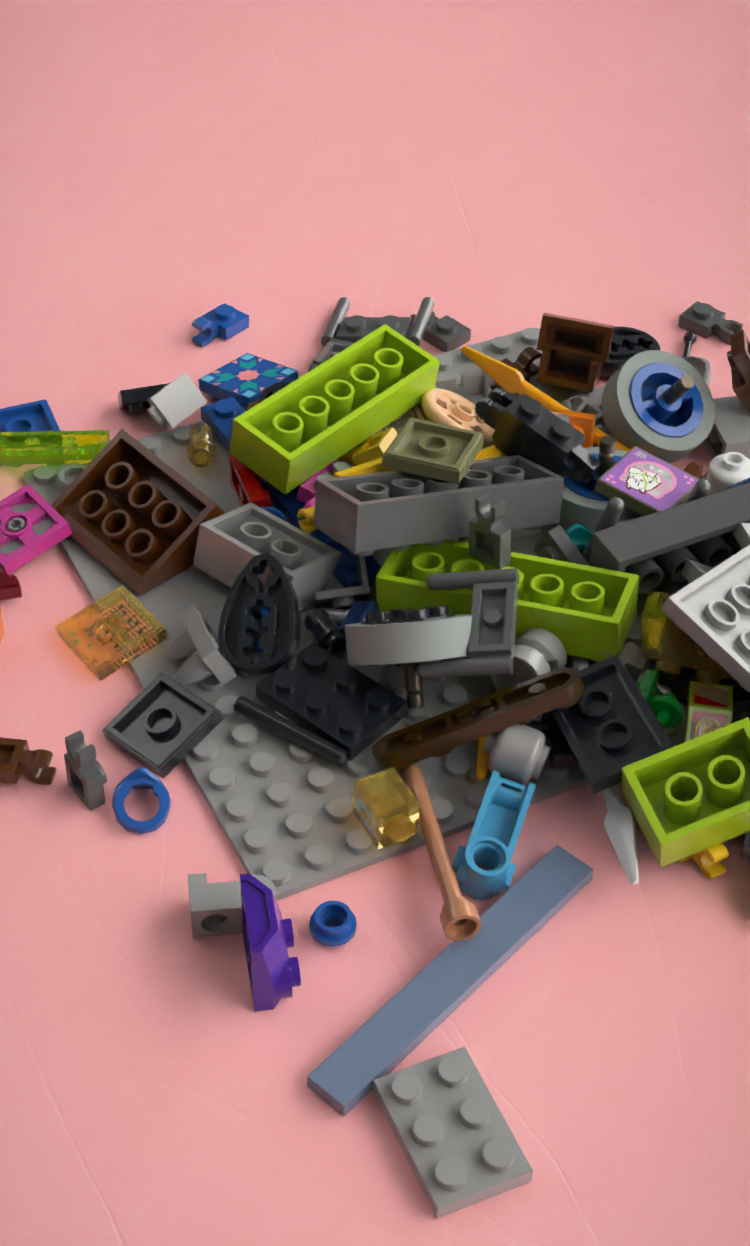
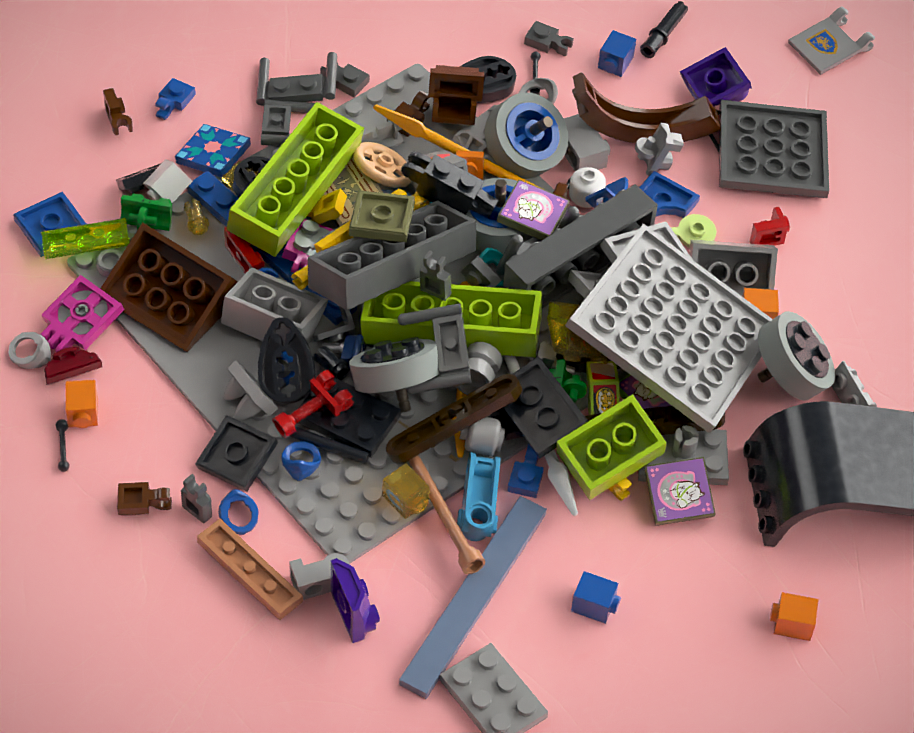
camera: 15 degrees left, 10 degrees up
(111, 632) = (177, 386): clear yellow tile -> none
(132, 880) = (250, 569): none -> nougat plate
(143, 326) = (115, 109): none -> reddish brown plate
(147, 428) = (153, 213): none -> green hips
(244, 756) = (300, 469): none -> blue piece
(299, 653) = (324, 382): none -> red bar
(331, 914) = (388, 569): blue plate -> none
(574, 821) = (526, 476): none -> blue plate
(643, 1007) = (595, 597): none -> blue brick

